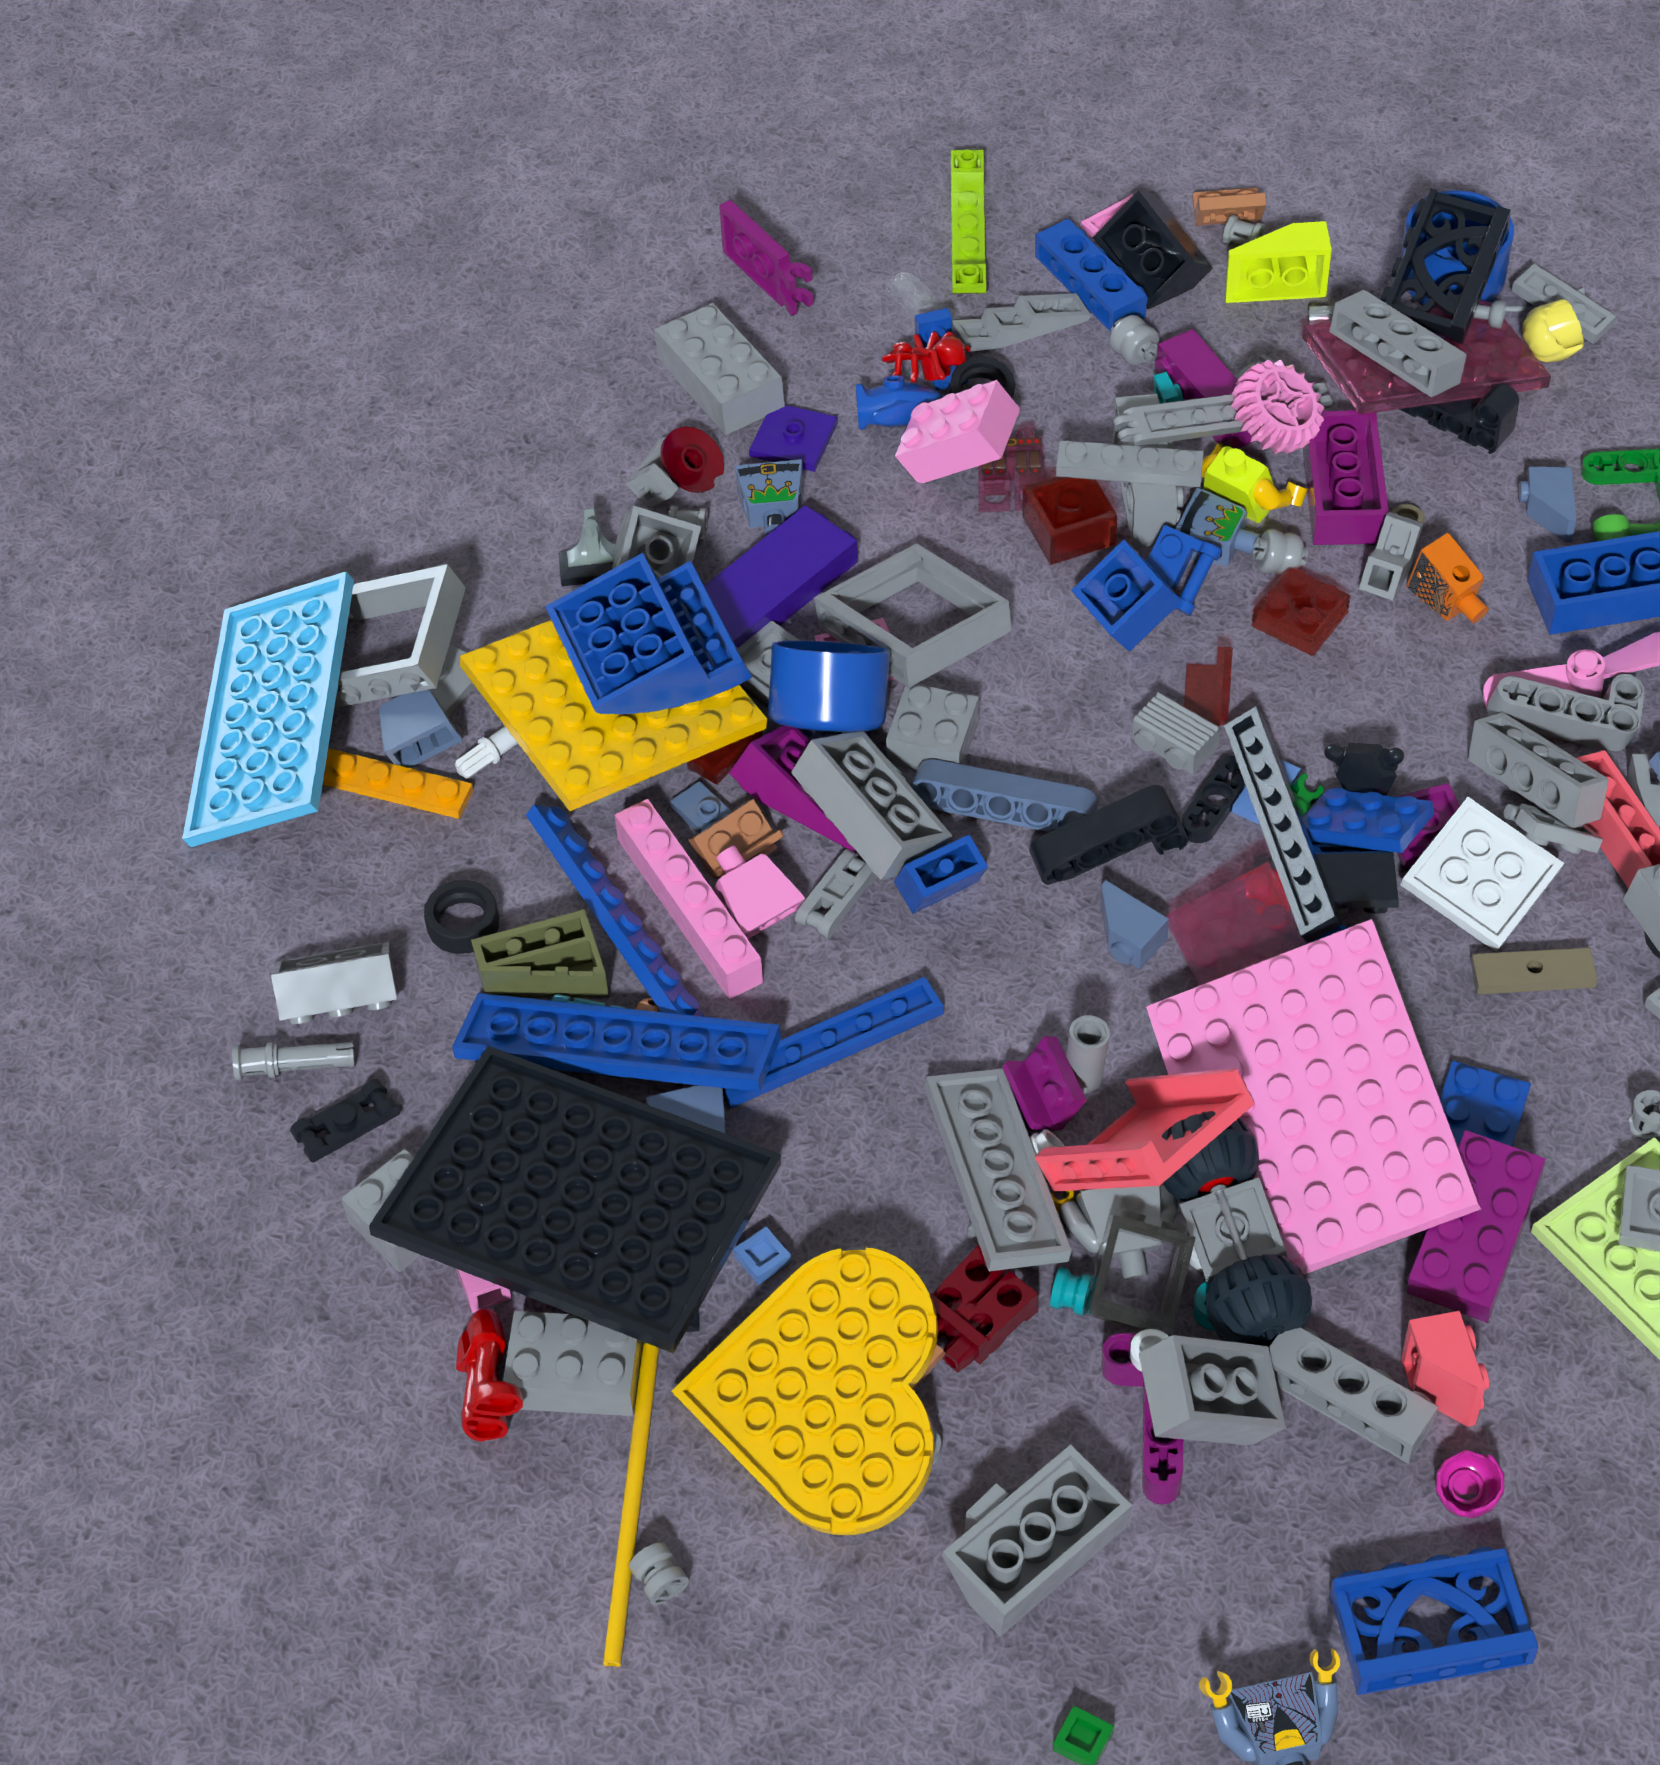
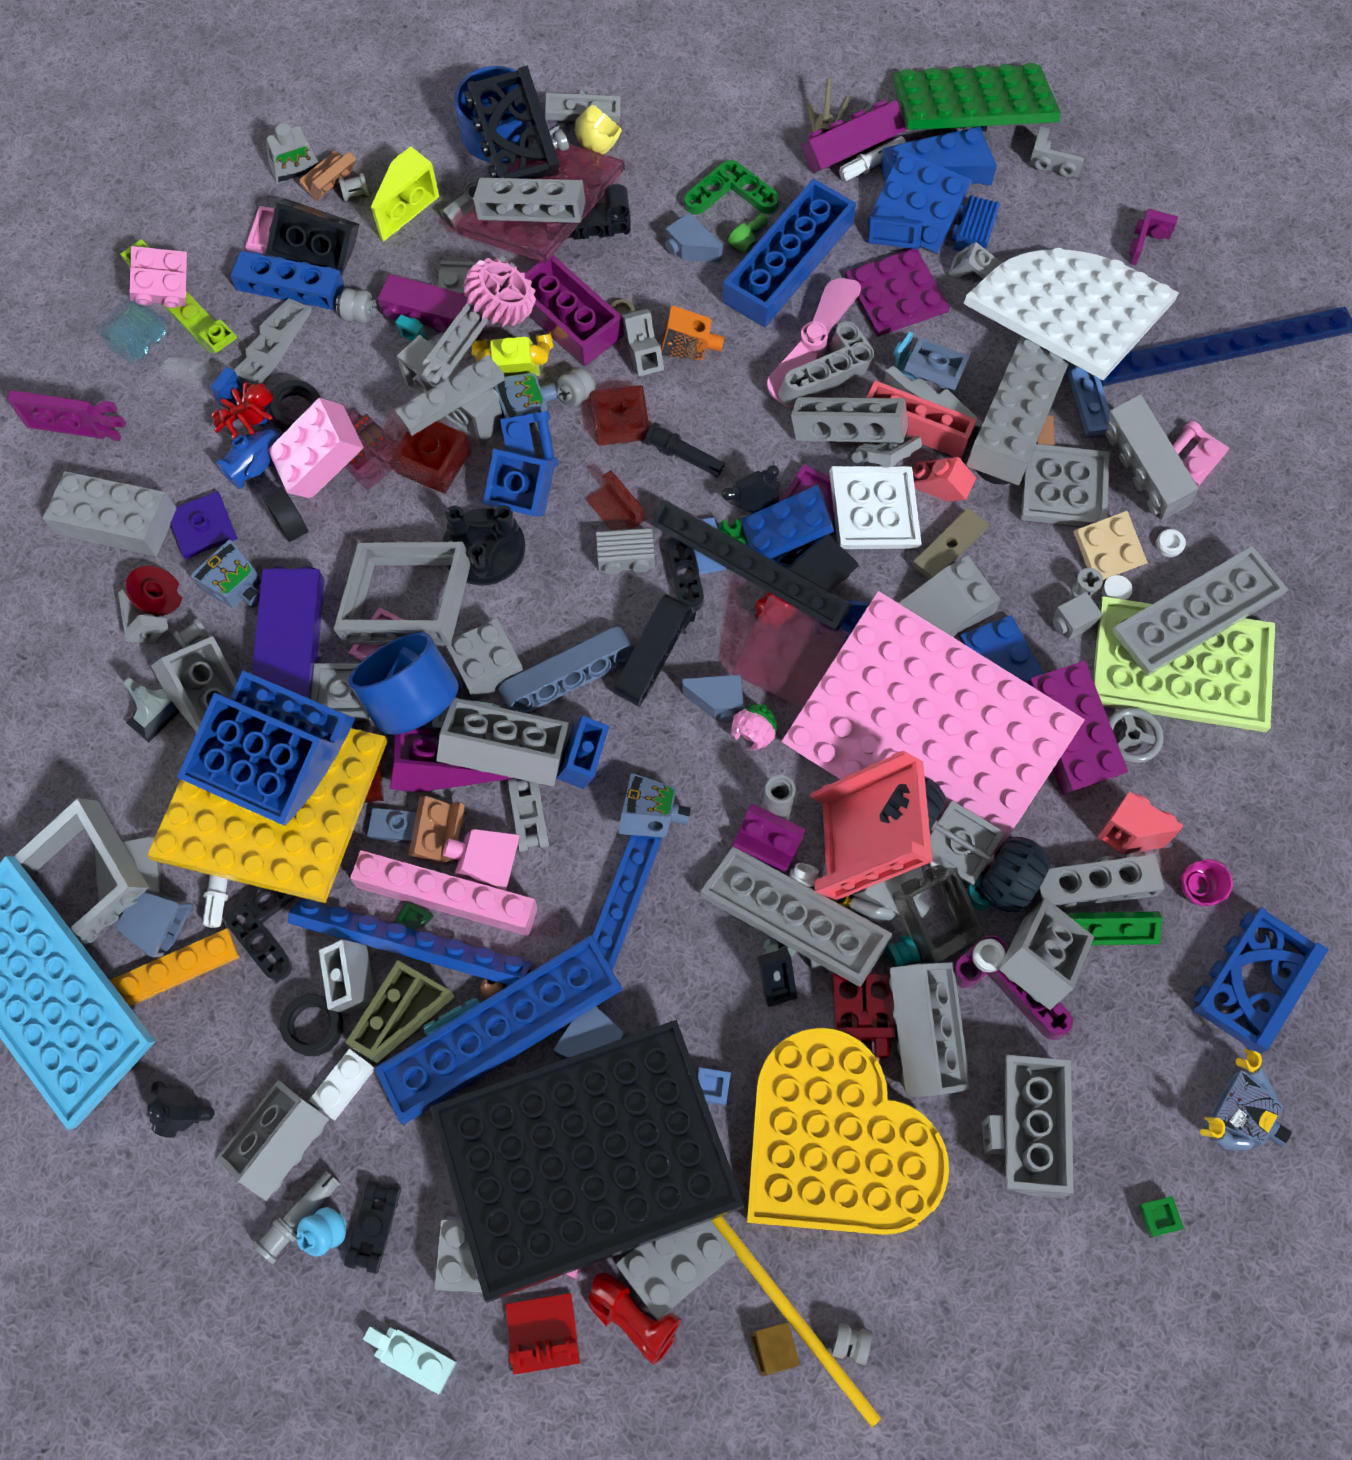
camera: 45 degrees left, 15 degrees up
(269, 1250) = (411, 1357): none -> light aqua hinge
(279, 891) = (174, 1110): none -> black rock
(298, 1081) = (321, 1231): none -> medium azure piece
(395, 1327) = (542, 1334): none -> red hinge
(437, 987) = (341, 1084): none -> white plate
(503, 795) = (256, 917): none -> black beam
(531, 892) = (347, 976): none -> light grey brick
(586, 1519) = (774, 1349): none -> pearl gold piece
(642, 901) = (413, 916): none -> dark green tile
(874, 473) = (285, 514): none -> black tyre
(900, 230) = (135, 332): none -> clear light blue brick
(922, 1200) = (777, 973): none -> black piece
(953, 969) = (650, 808): none -> sand blue torso
(964, 192) = (158, 276): none -> bright pink plate
(1023, 1371) = (929, 1029): none -> light grey slope
(1043, 632) = (492, 542): none -> black piece
(1138, 976) = (755, 724): none -> bright pink piece
(1209, 161) = (290, 153): none -> light grey torso
(1327, 1450) = (1121, 927): none -> green plate
(1328, 675) = (673, 445): none -> black pin
(1471, 1020) = (954, 598): none -> light grey slope
(1539, 1306) = (1130, 745): none -> light grey piece
(1591, 902) = (944, 478): none -> coral slope
(1601, 1135) = (1076, 616): none -> light grey brick

